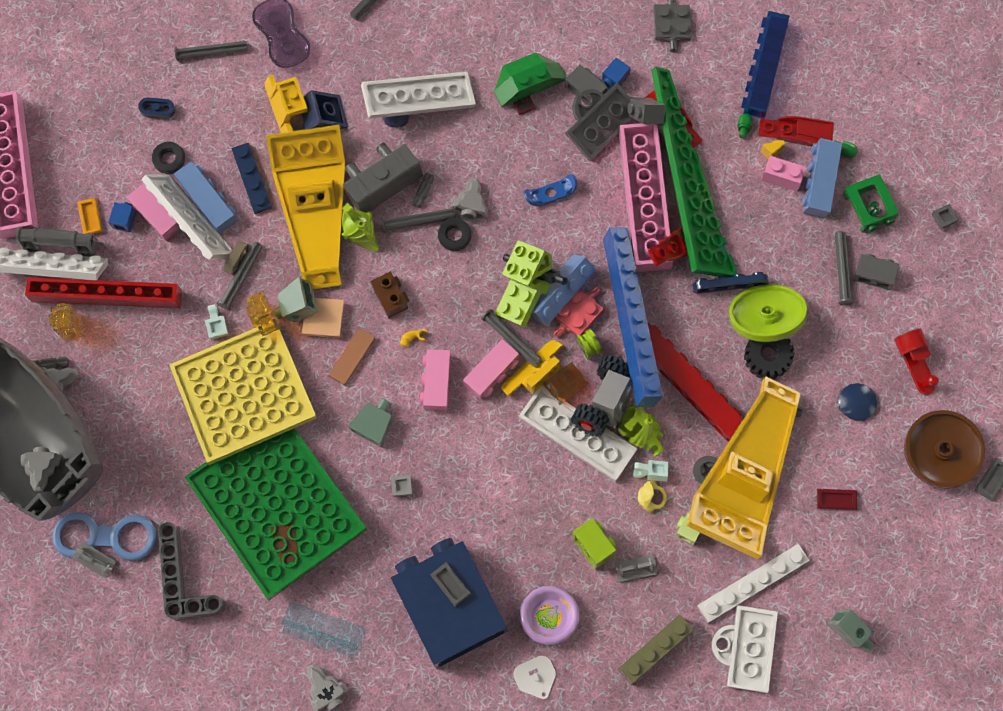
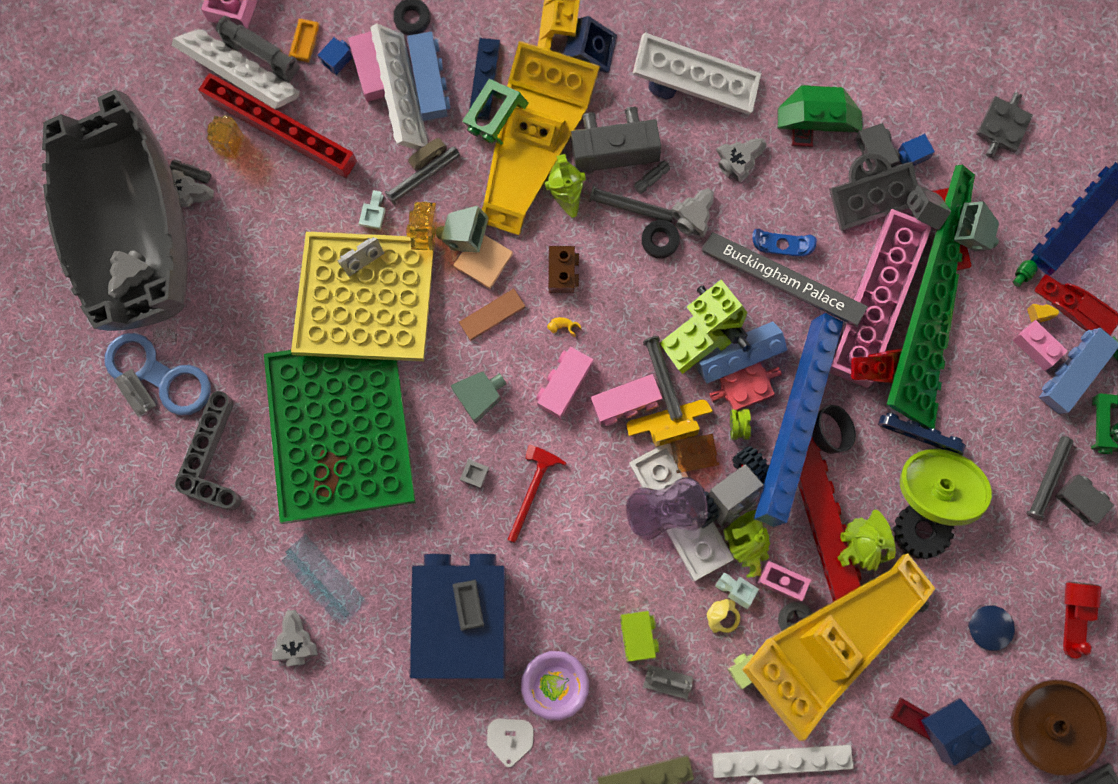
camera: 25 degrees right, 5 degrees up
(227, 358) = (366, 253): none -> light grey hinge
(283, 182) = (490, 131): none -> panel
(452, 447) = (544, 460): none -> red piece
(484, 143) = (740, 157): none -> light grey rock
(566, 217) = (785, 279): none -> dark grey tile
(573, 428) = (677, 506): none -> clear purple plate
(669, 305) = (846, 427): none -> black tyre
(683, 446) = (783, 581): none -> bright pink brick
(691, 108) = (977, 227): none -> sand green torso
(731, 382) = (867, 540): none -> lime helmet
(871, 492) = (956, 732): none -> dark blue slope

